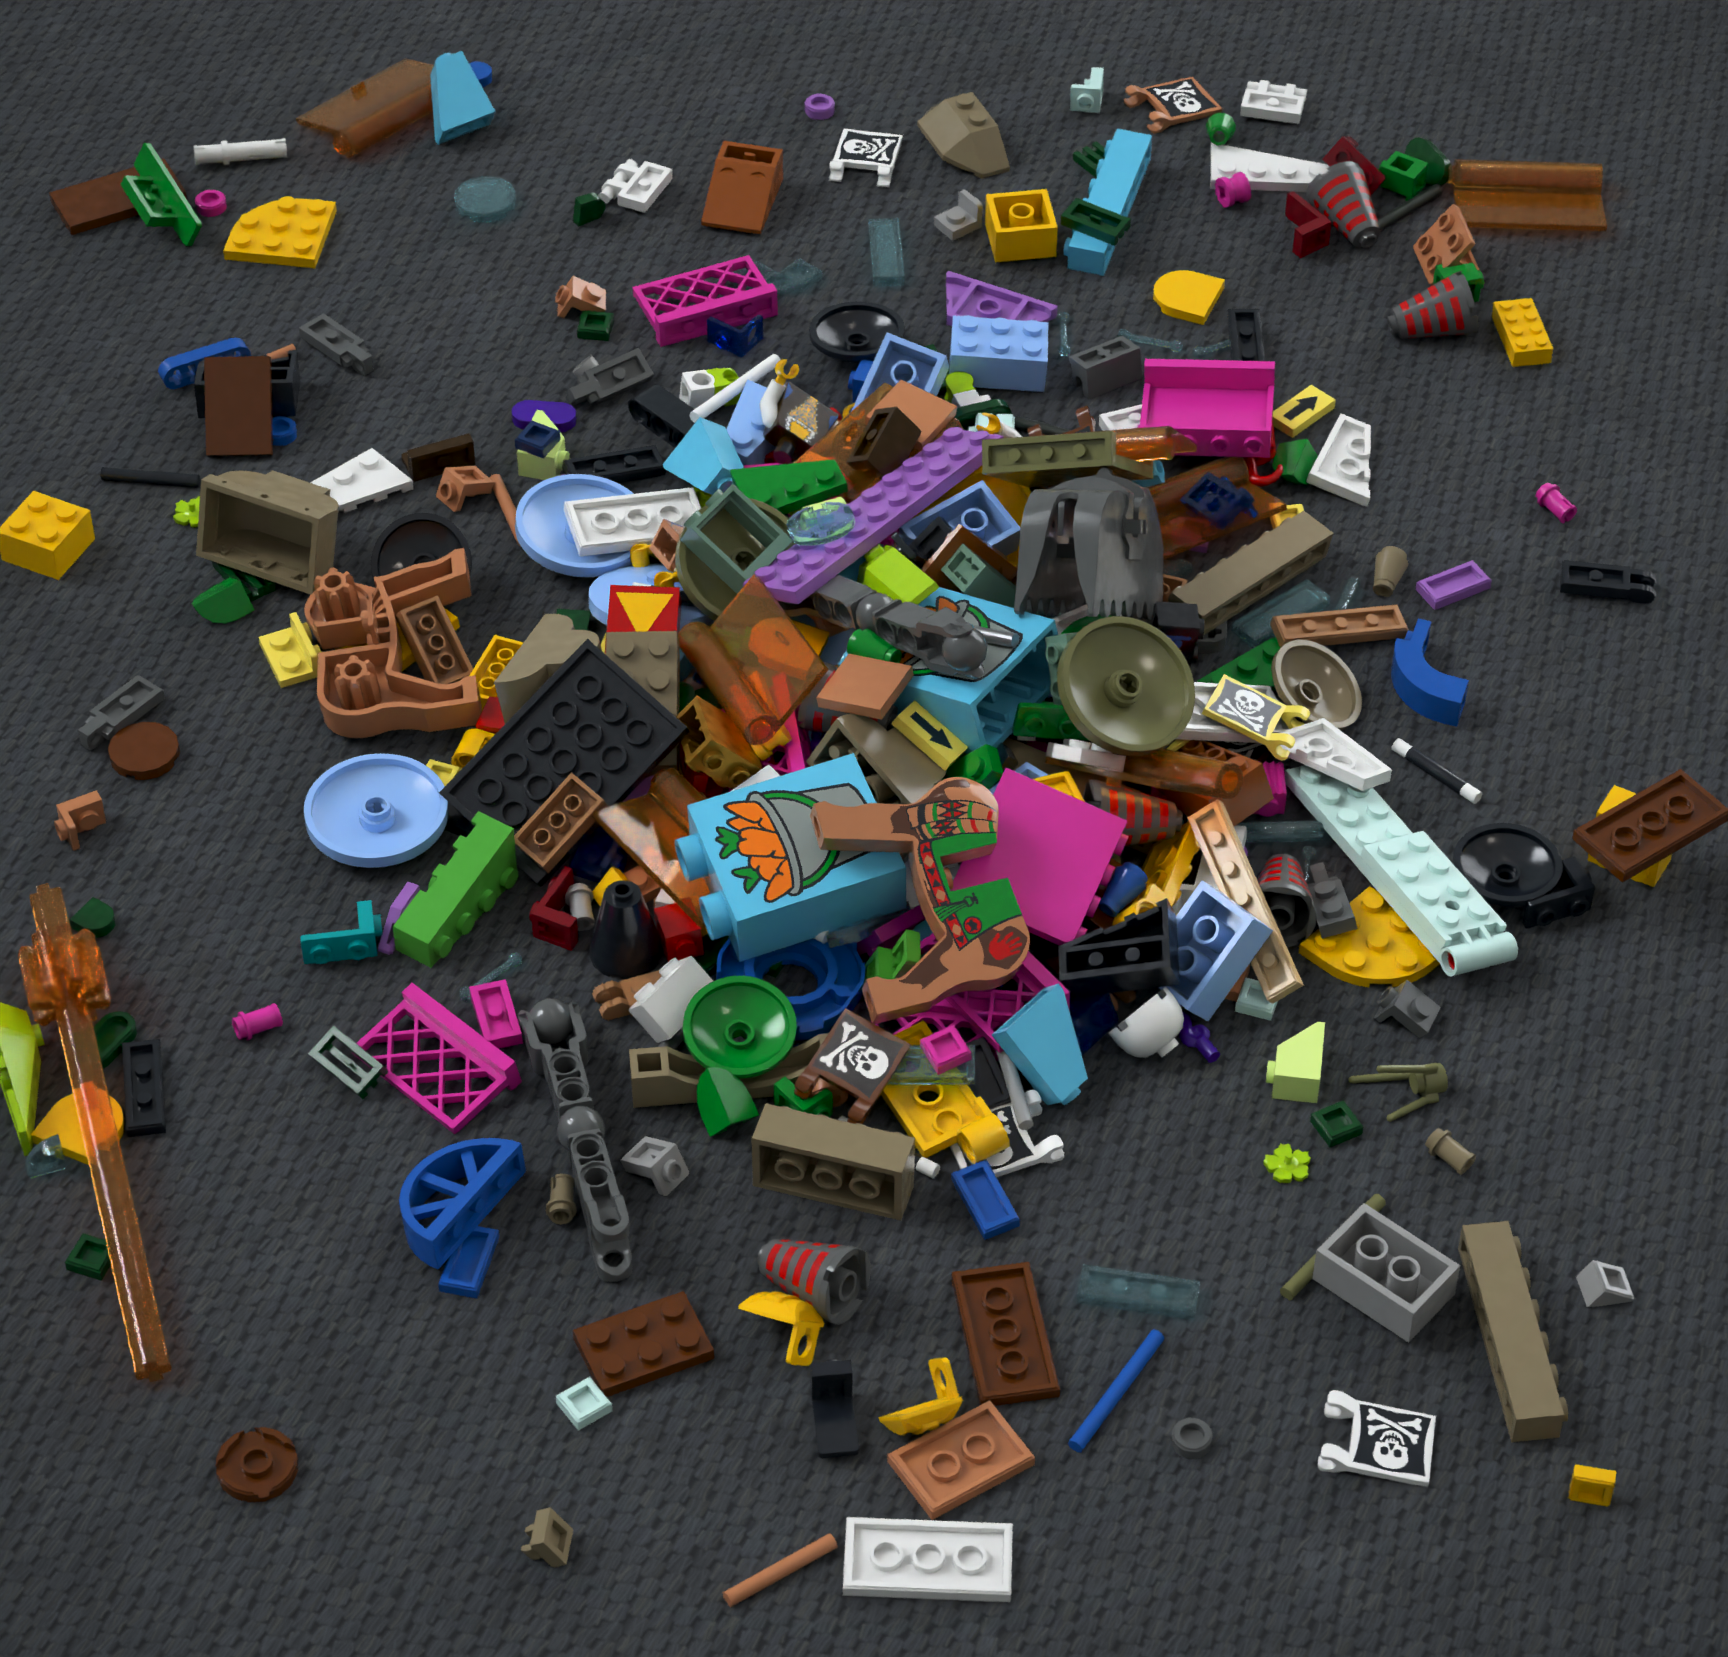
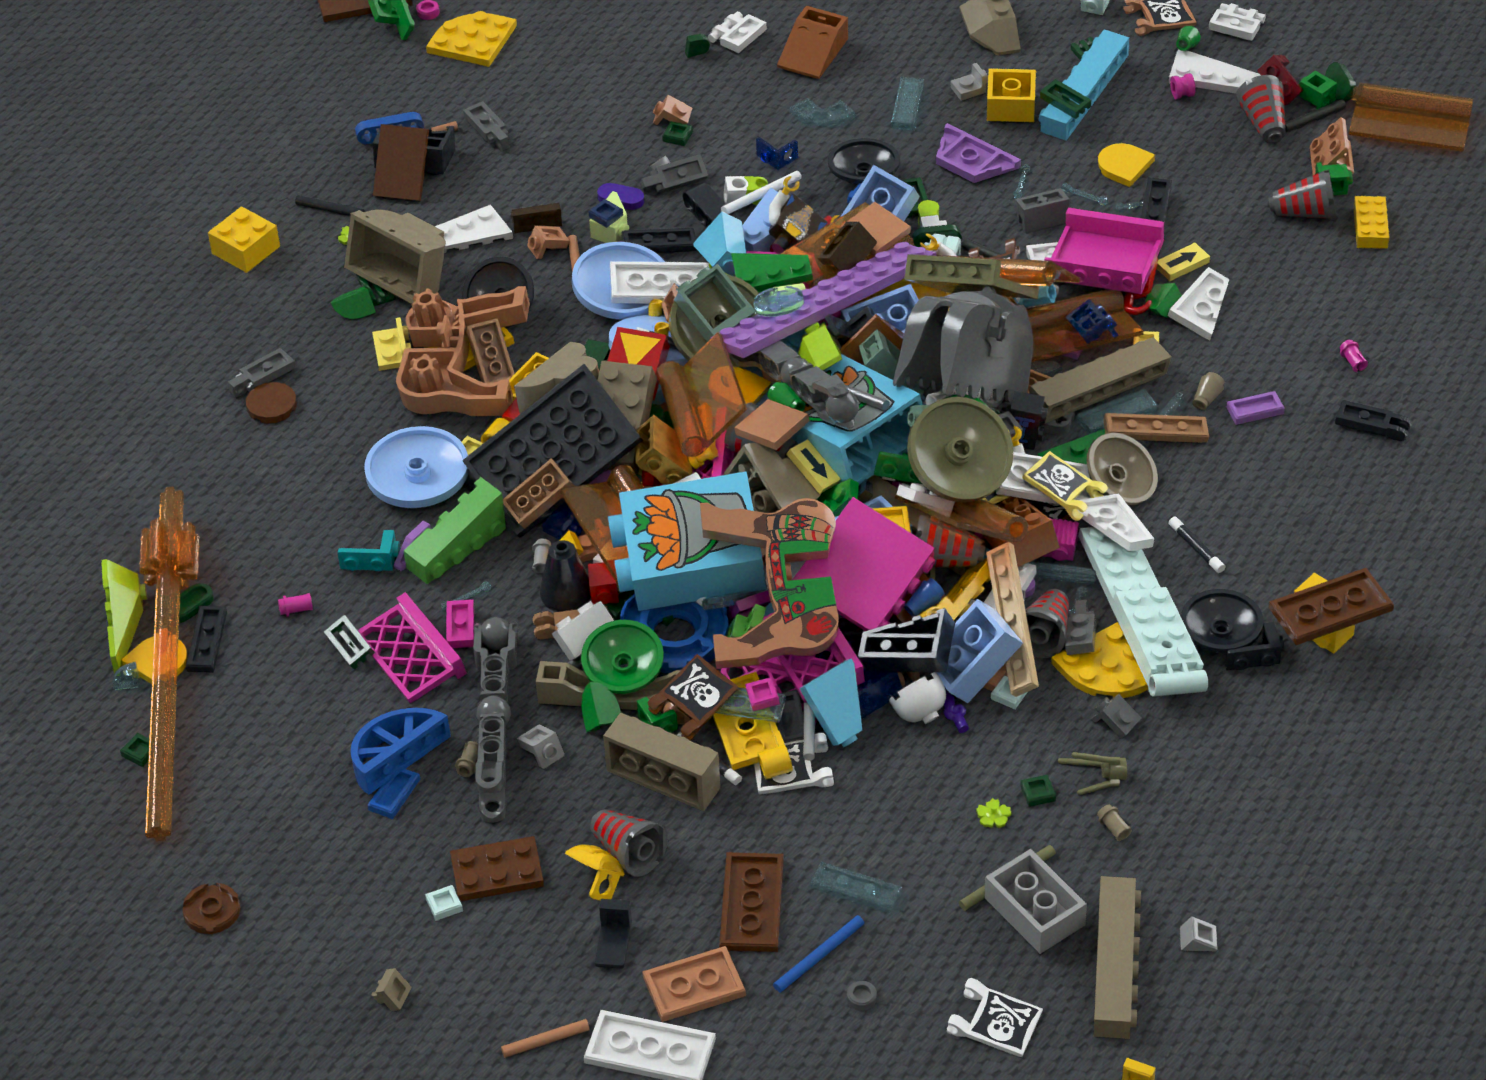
camera: 15 degrees right, 0 degrees up
(79, 815) = (212, 442): nougat bracket -> none
(94, 916) = (204, 517): dark green tile -> none
(283, 430) = (431, 184): blue tile -> none
(485, 198) = (625, 29): clear light blue tile -> none
(547, 919) = (516, 557): dark red bracket -> none
(689, 322) = (778, 134): dark pink fence -> none
(868, 152) = (915, 25): flag -> none
(931, 1413) = (681, 948): yellow piece -> none
(985, 1199) = (766, 805): blue tile -> none
(1000, 352) = (965, 189): light blue brick -> none
(1298, 1066) = (1021, 744): yellowish green slope -> none
(1312, 228) = (1235, 122): dark red bracket -> none
(1420, 685) = (1205, 482): blue arch -> none

